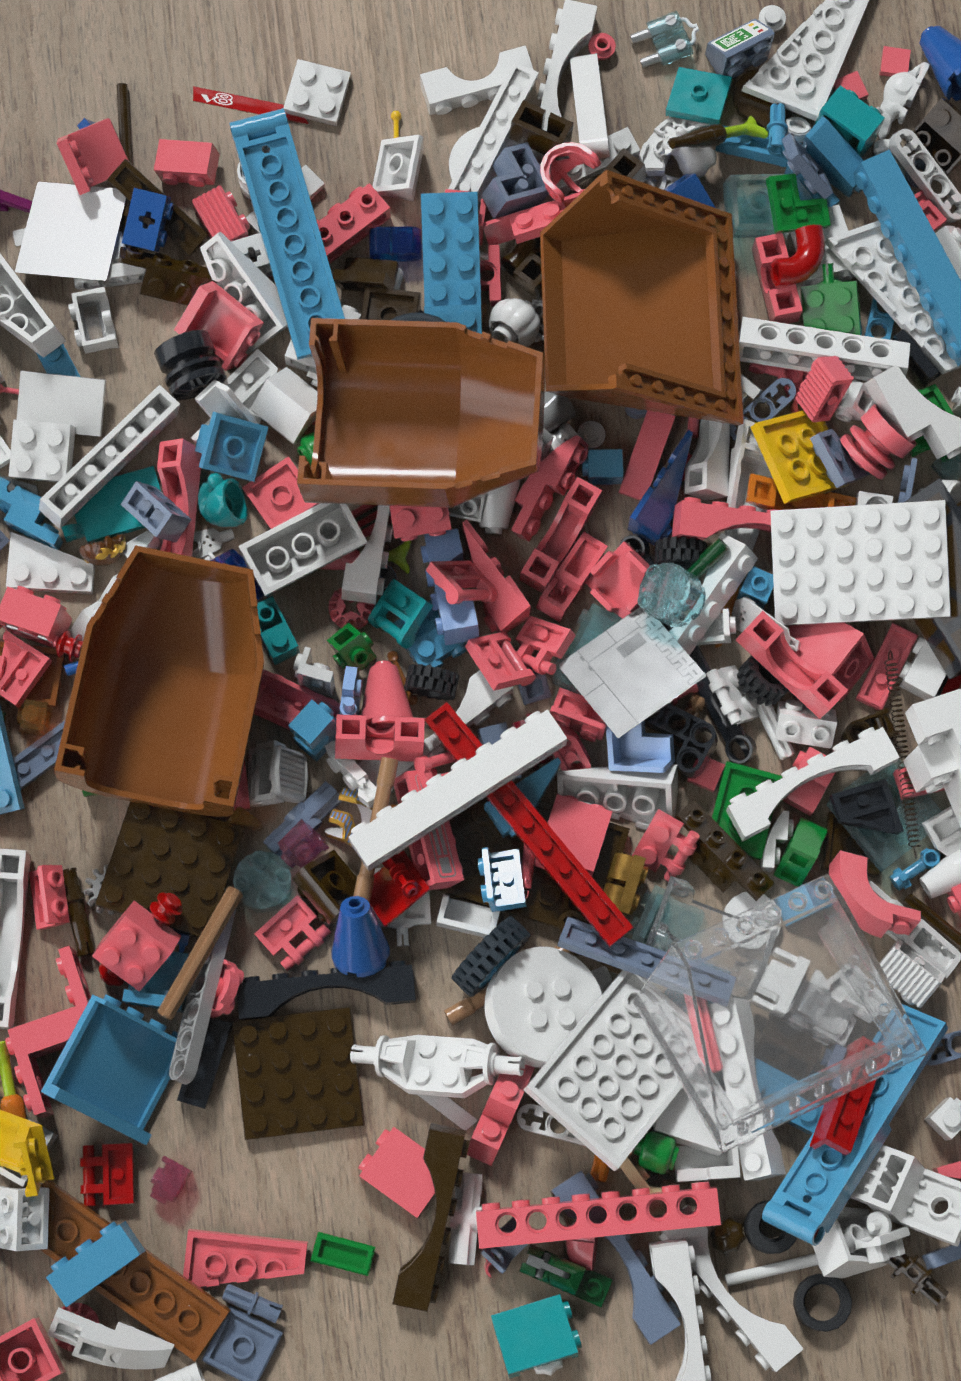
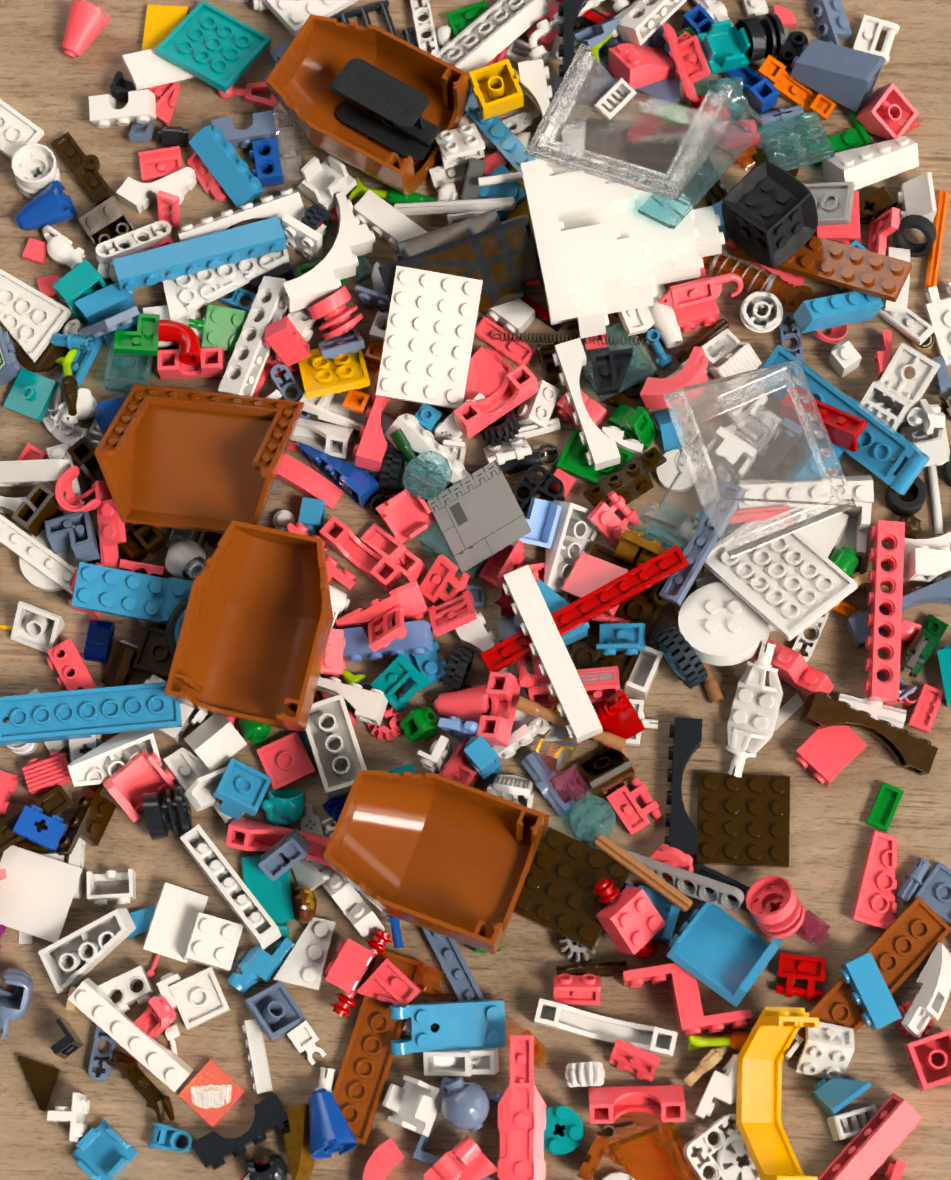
camera: 70 degrees left, 5 degrees down
(183, 1126) = (775, 907): none -> coral wheel
(358, 939) = (651, 753): blue cone -> none
(482, 1291) = (926, 708): none -> coral plate
(618, 114) = (32, 453): none -> coral plate

